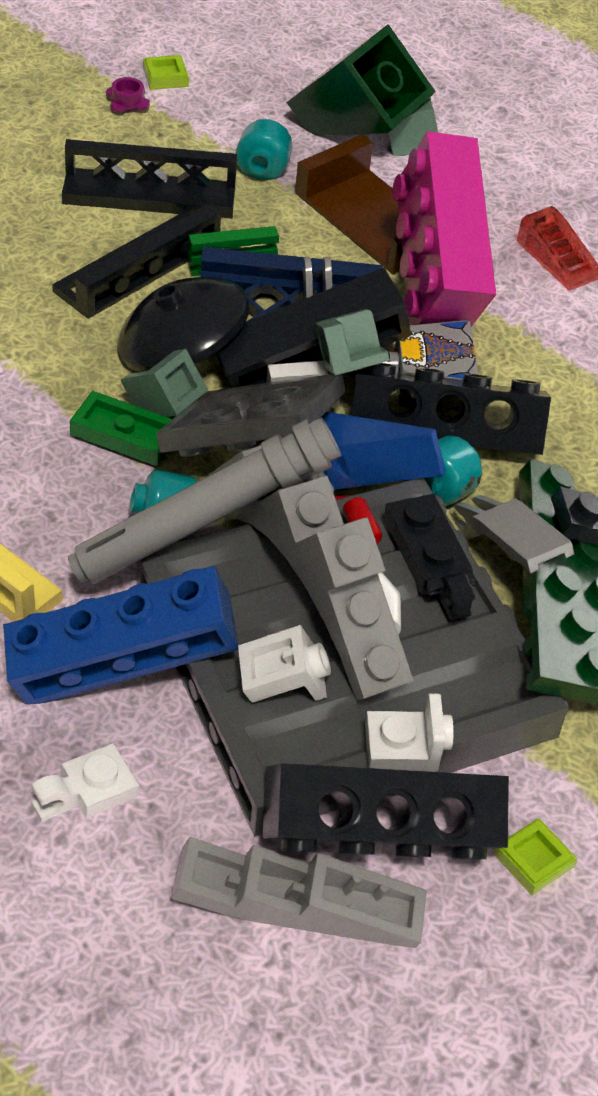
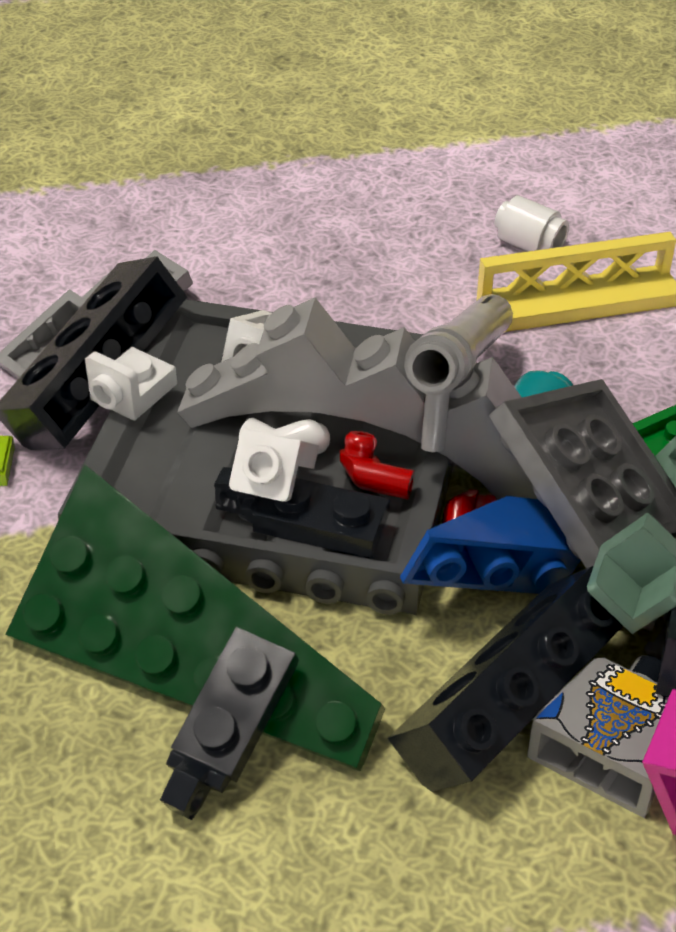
camera: 130 degrees right, 5 degrees down
(89, 781) = (293, 273): white plate -> none
(120, 636) = (390, 286): blue brick -> none
(428, 558) = (269, 464): none -> white bracket
(462, 470) = (430, 634): teal head -> none
(515, 529) = (288, 594): light grey arm -> none

